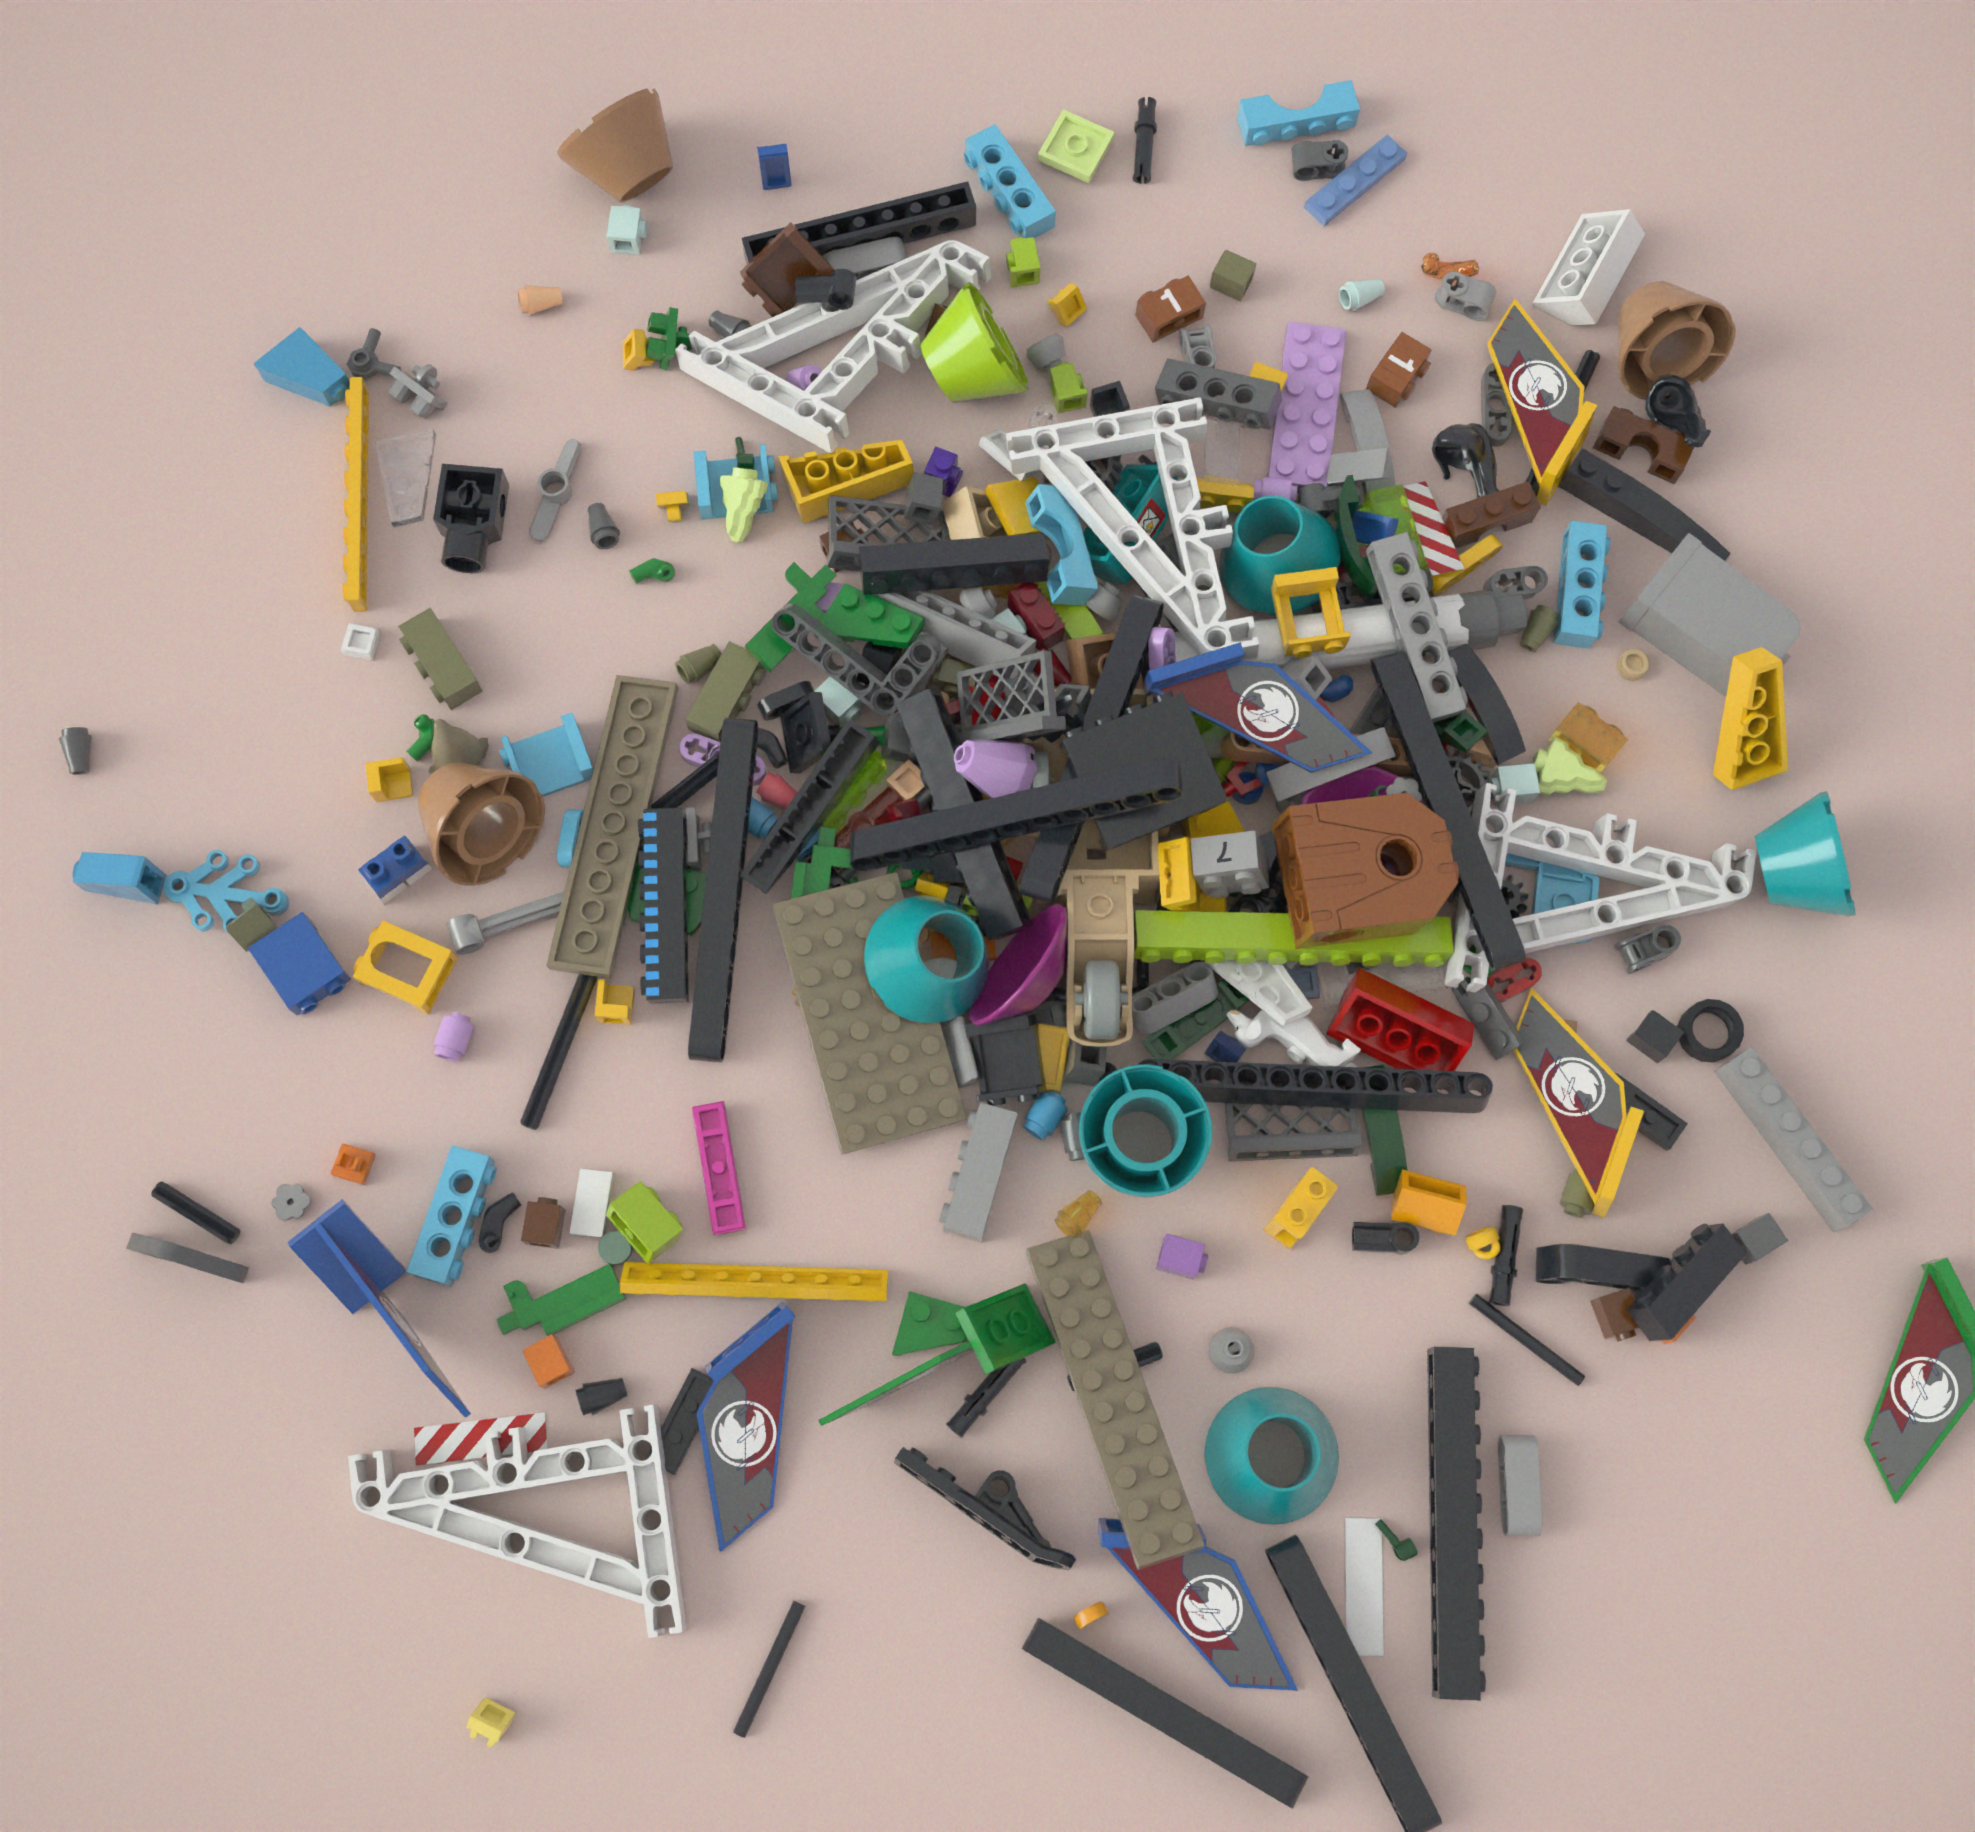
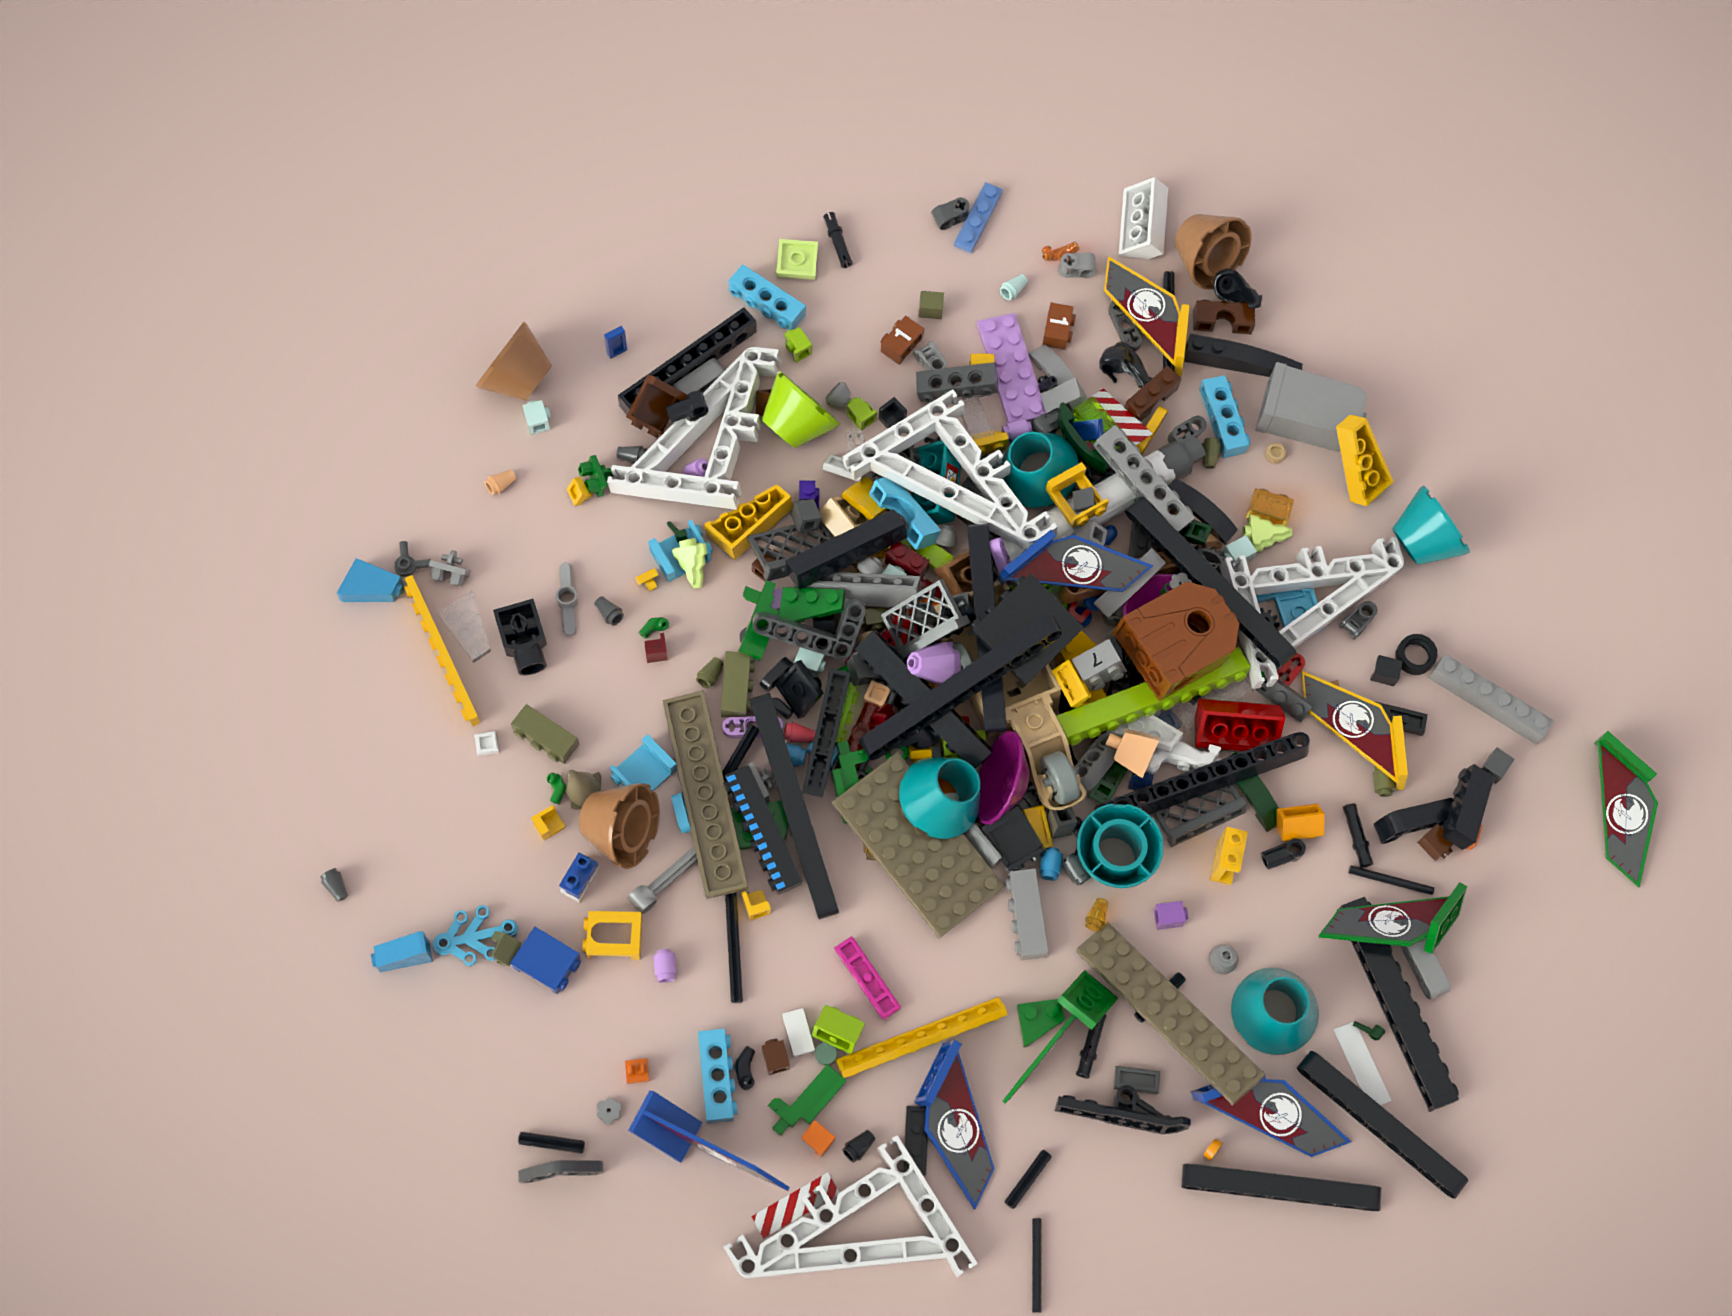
camera: 25 degrees left, 5 degrees down
(641, 603) = (656, 649): none -> dark red panel
(812, 1542) = (1028, 1179): none -> black axle
(1029, 1469) = (1140, 1079): none -> dark grey tile
(1067, 304) = (837, 361): yellow tile -> none
(1229, 1003) = (1133, 750): none -> light nougat torso
(1266, 121) = (906, 200): medium azure arch -> none
(1317, 621) = (1083, 499): none -> dark grey tile
(1346, 442) = (1046, 383): none -> black arm
(1481, 1238) = (1340, 830): yellow tile -> none
(1505, 1407) = (1398, 922): none -> piece

